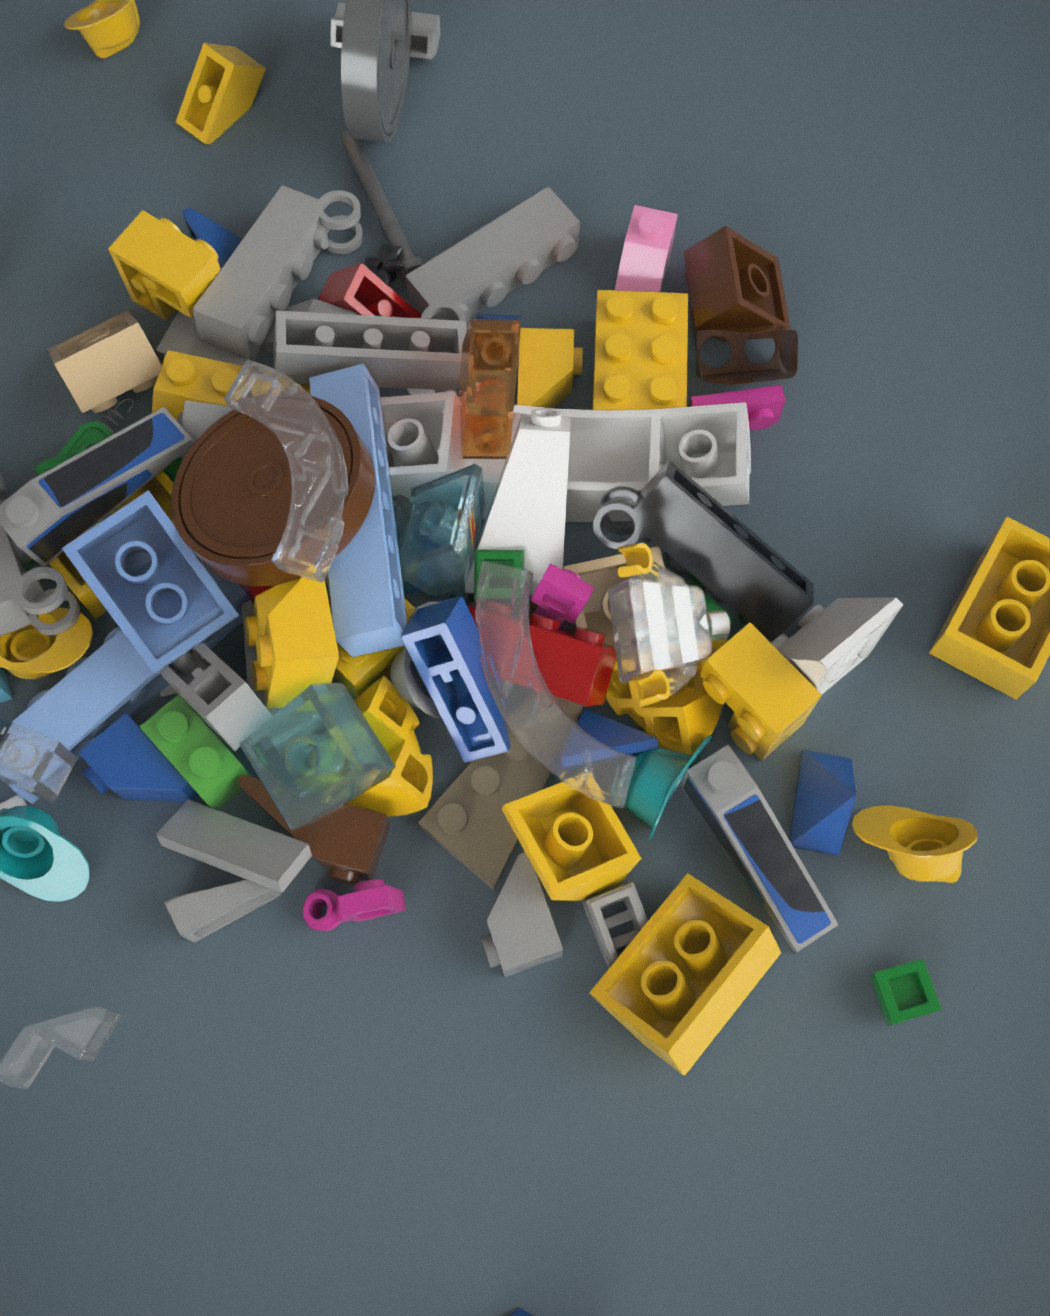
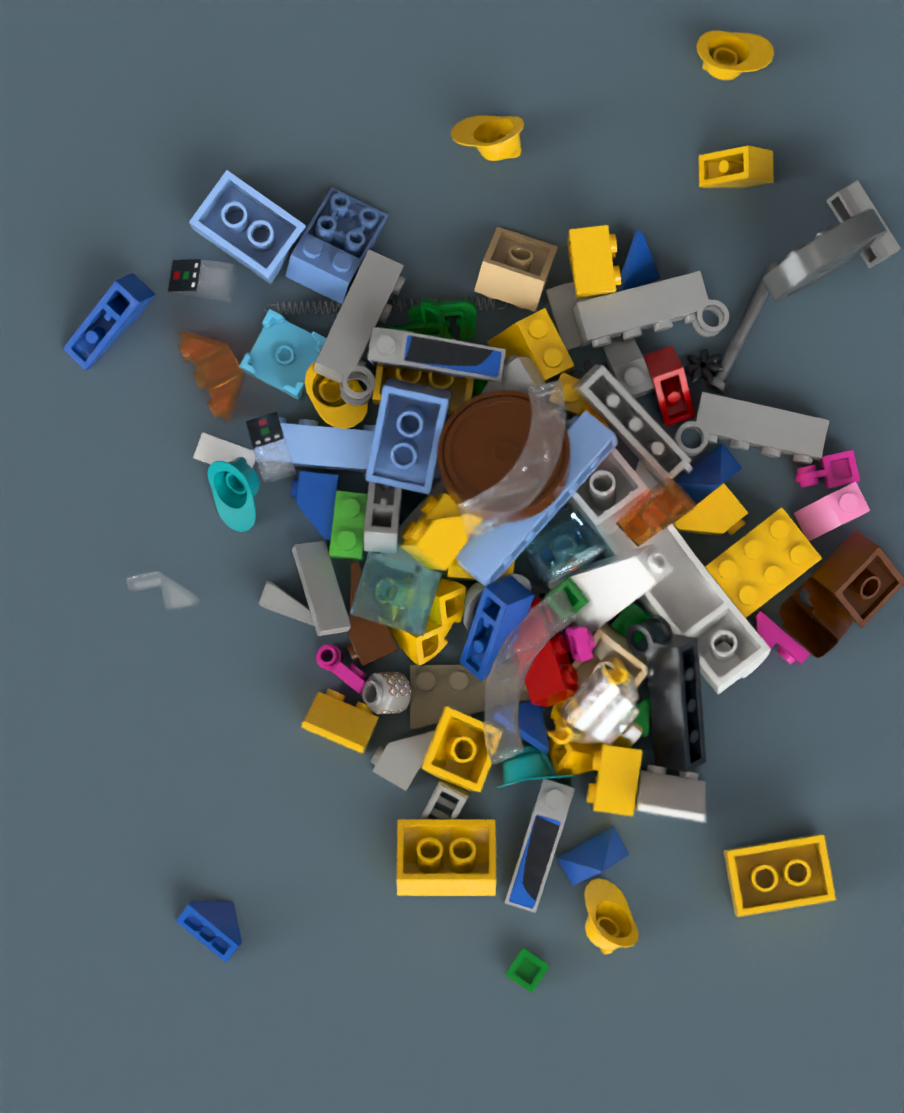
camera: 55 degrees right, 15 degrees up
(410, 960) = (341, 721): none -> yellow slope
(425, 873) = (387, 692): none -> light grey head
(581, 542) = (628, 617): none -> green plate
(603, 229) = (837, 471): none -> dark pink plate

